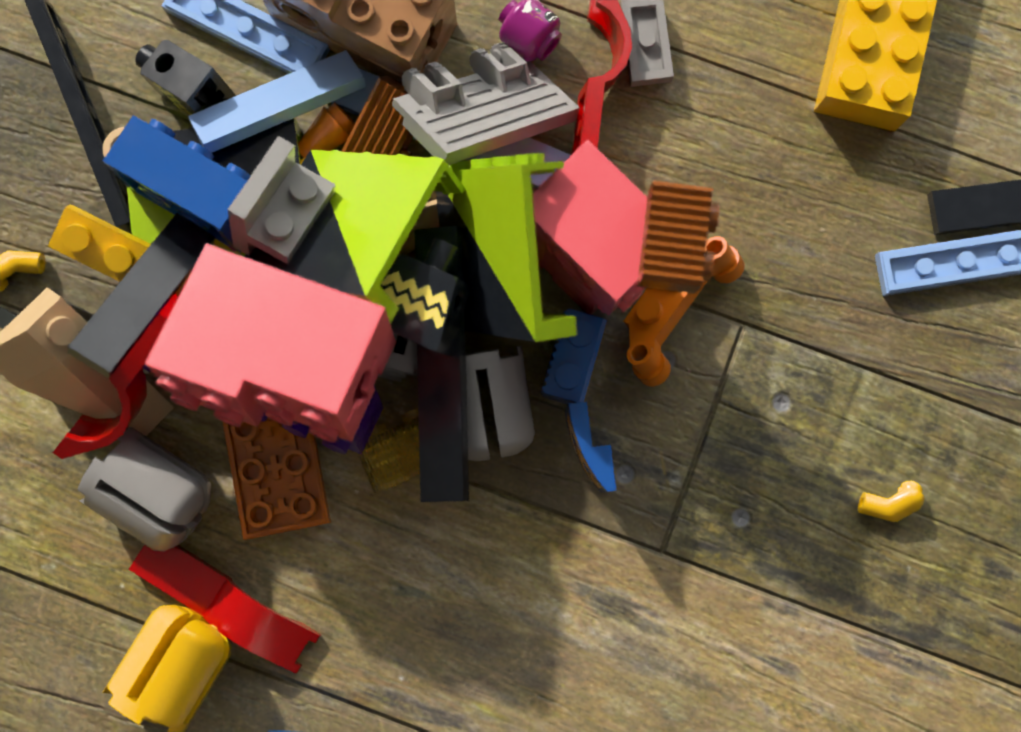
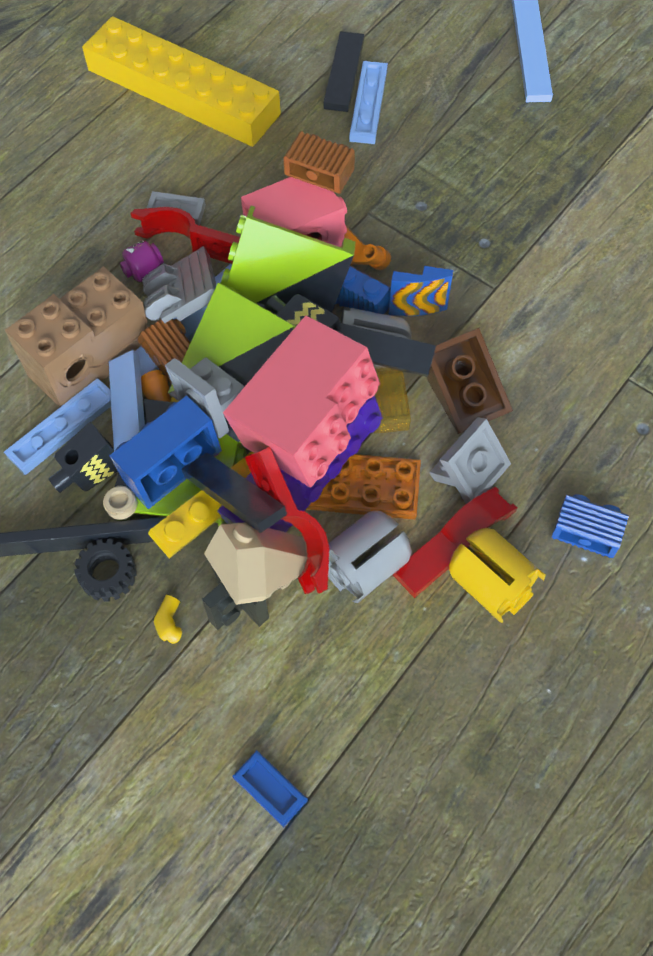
camera: 70 degrees left, 20 degrees down
(34, 150) = (94, 556): none -> black tyre
(335, 593) = (472, 461): none -> light grey bracket
(471, 551) = (467, 381): none -> reddish brown slope
(897, 507) = (501, 165): yellow arm -> none

